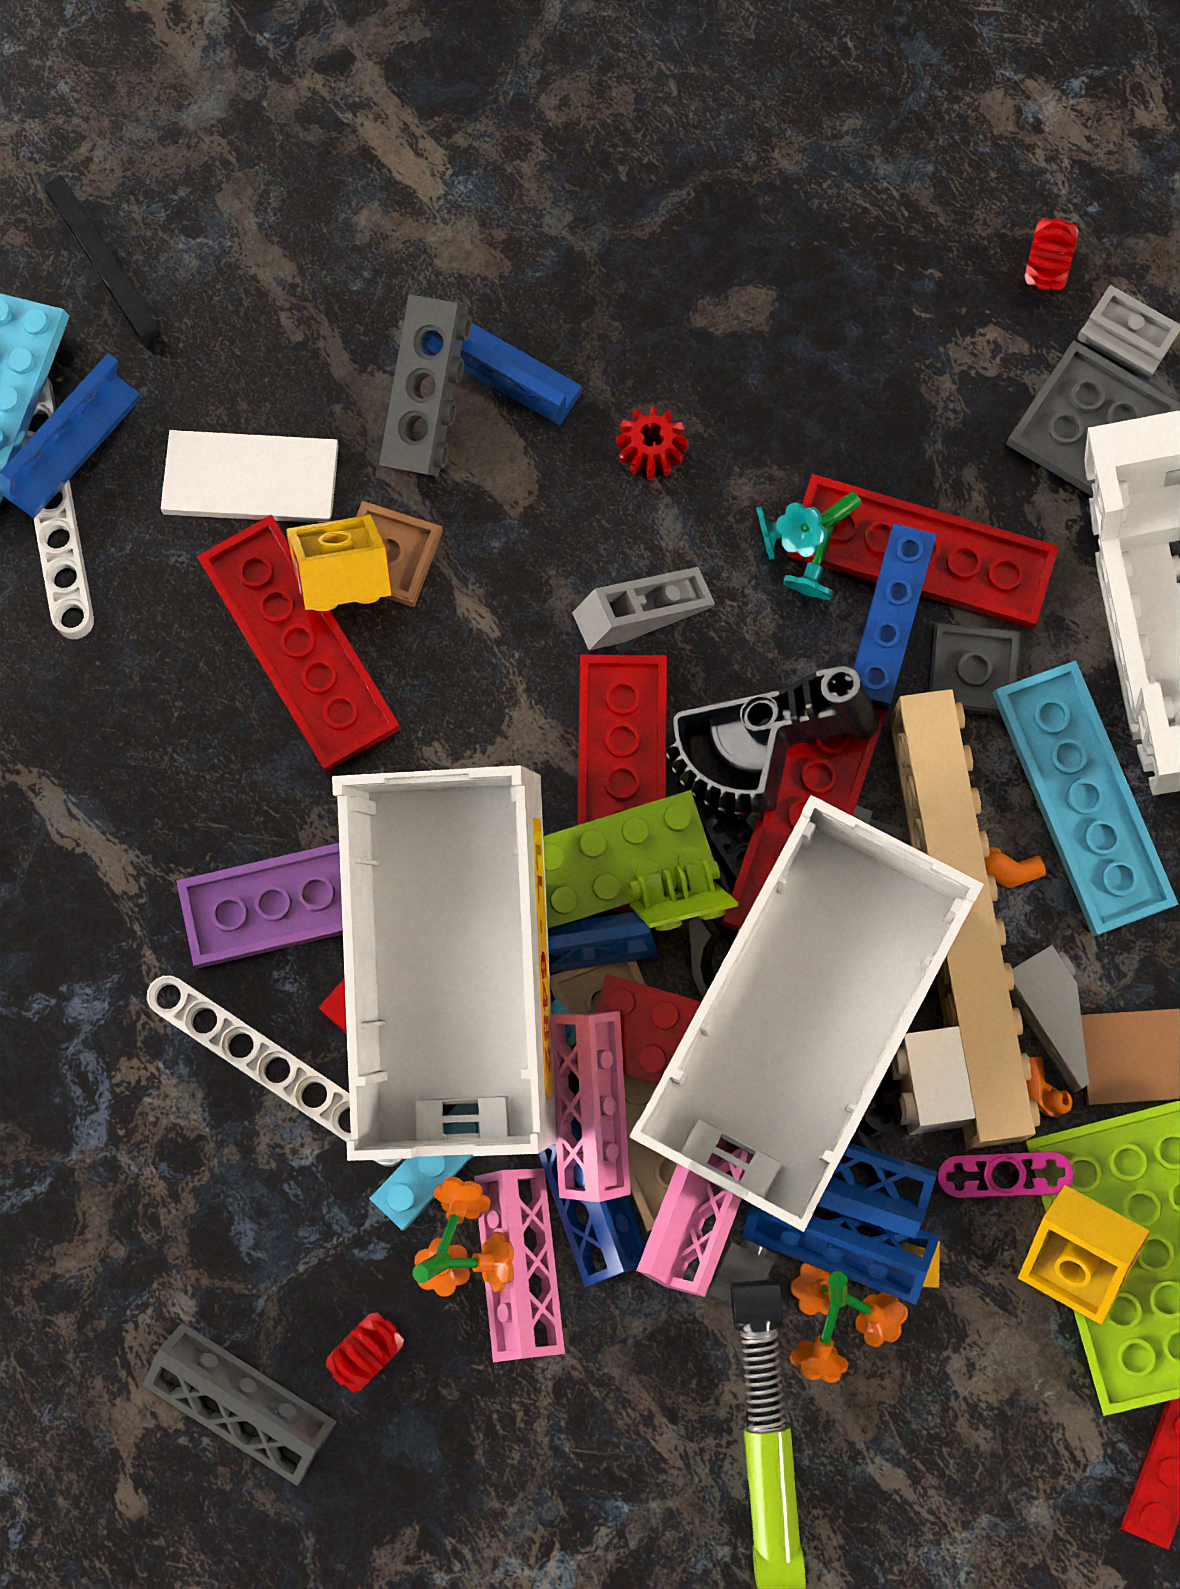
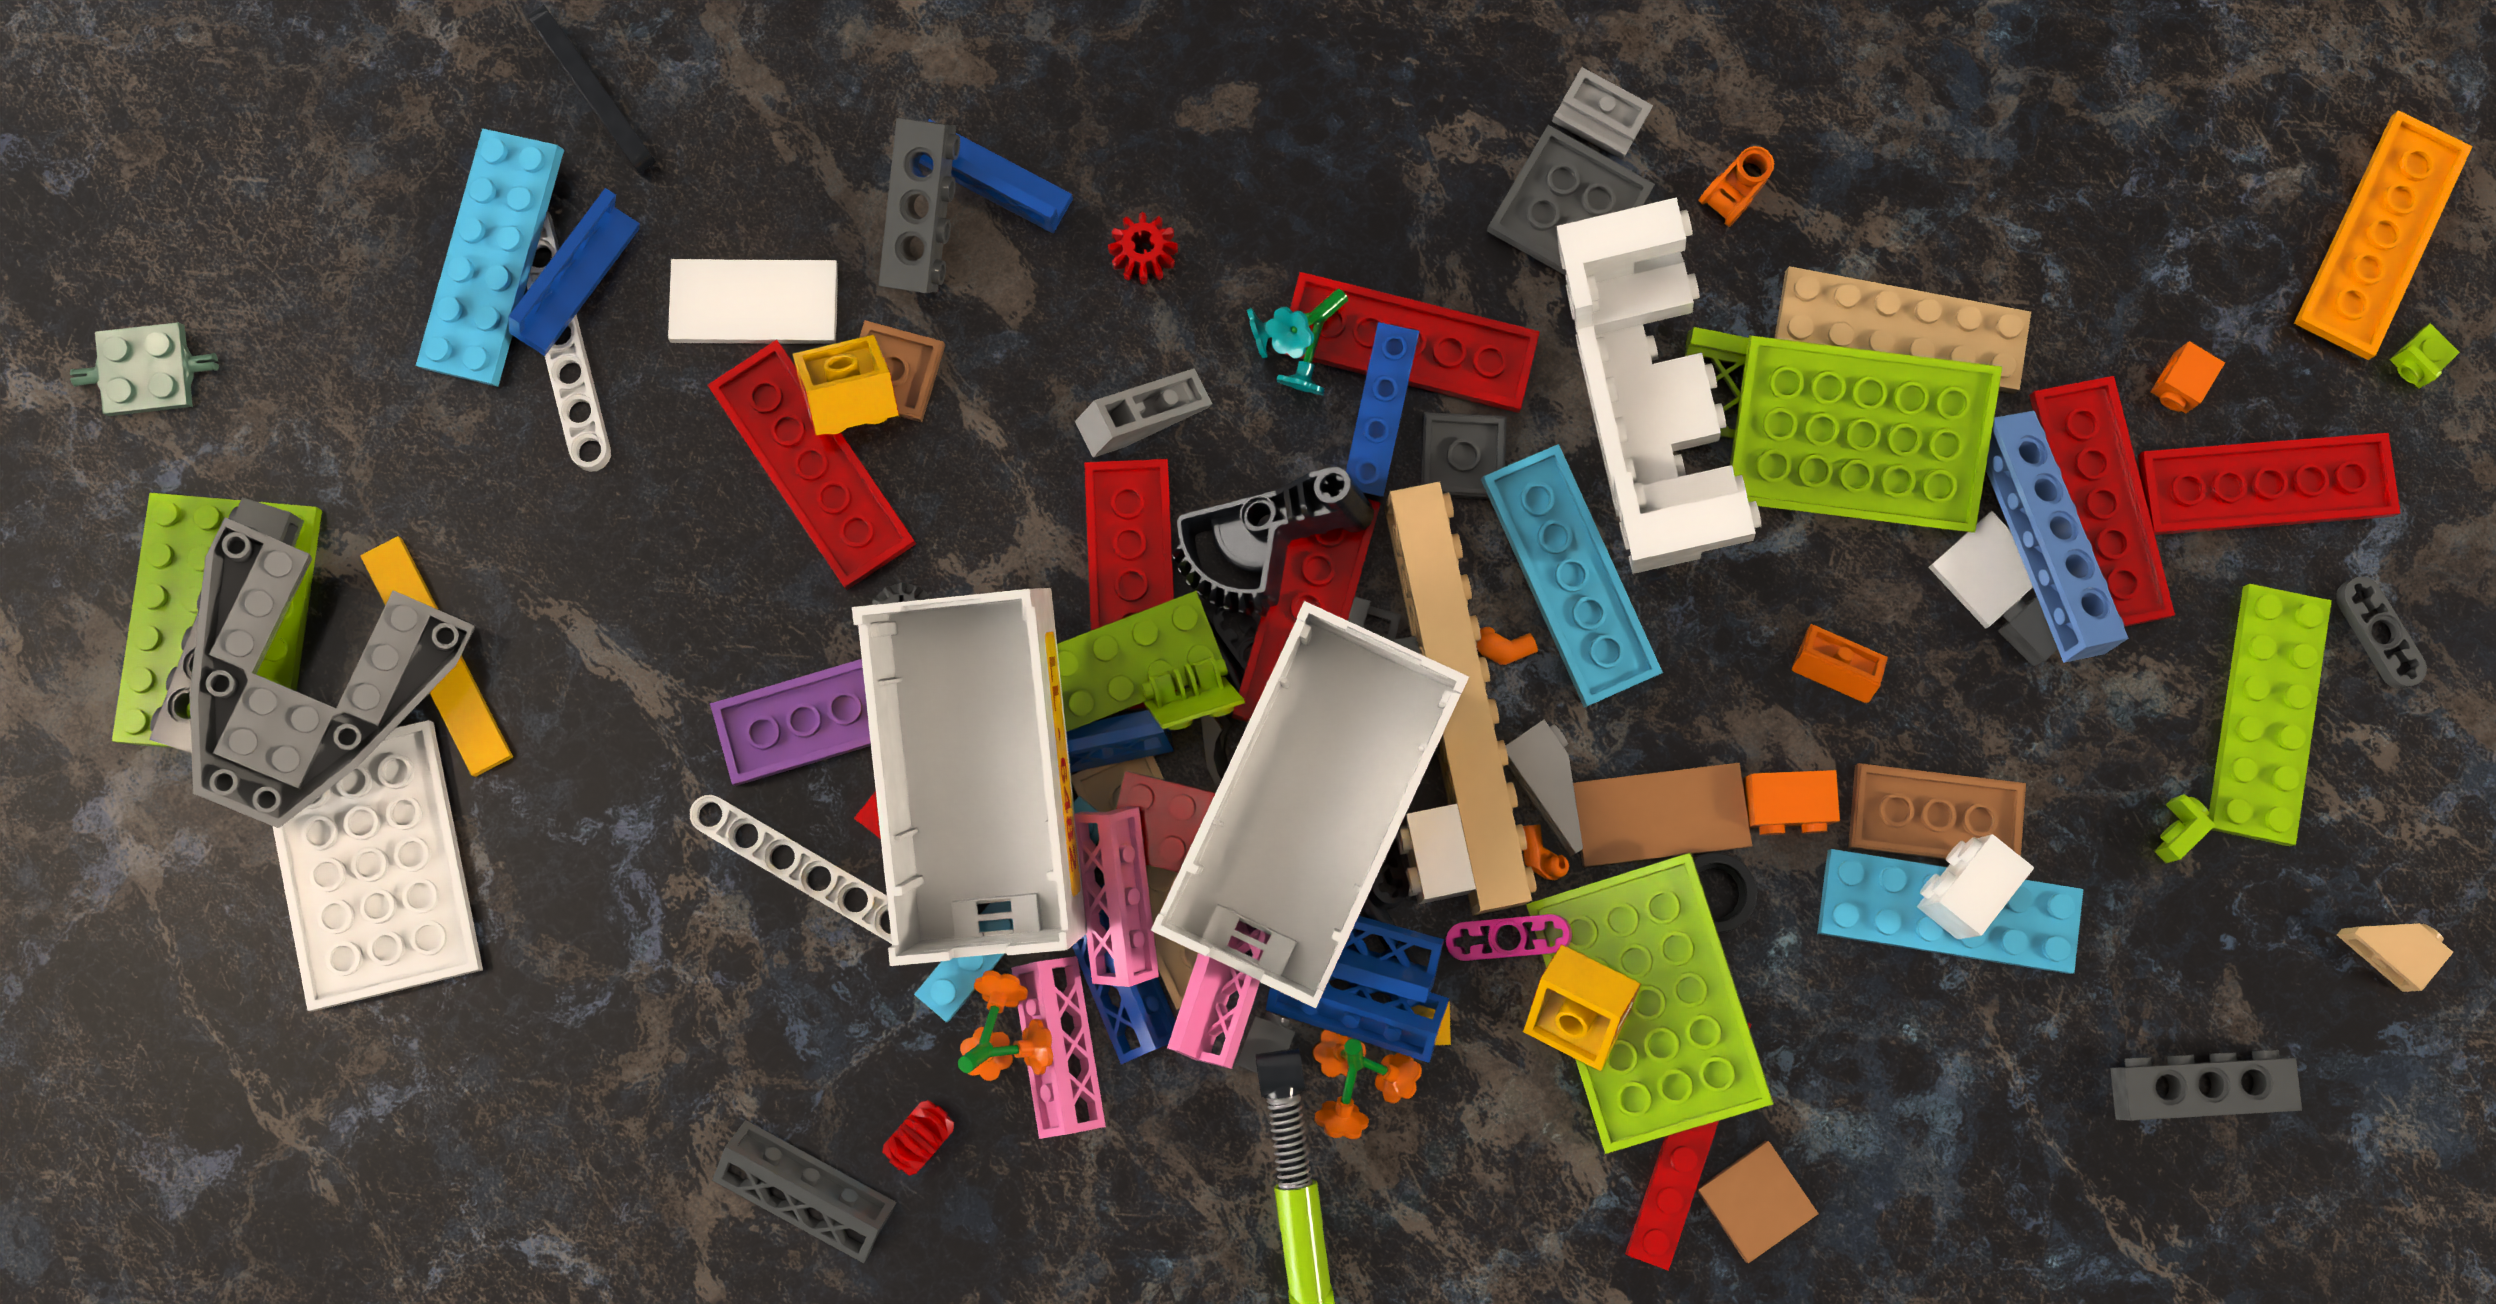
camera: 10 degrees left, 5 degrees up
(1051, 254) = (1523, 39): red gear -> none

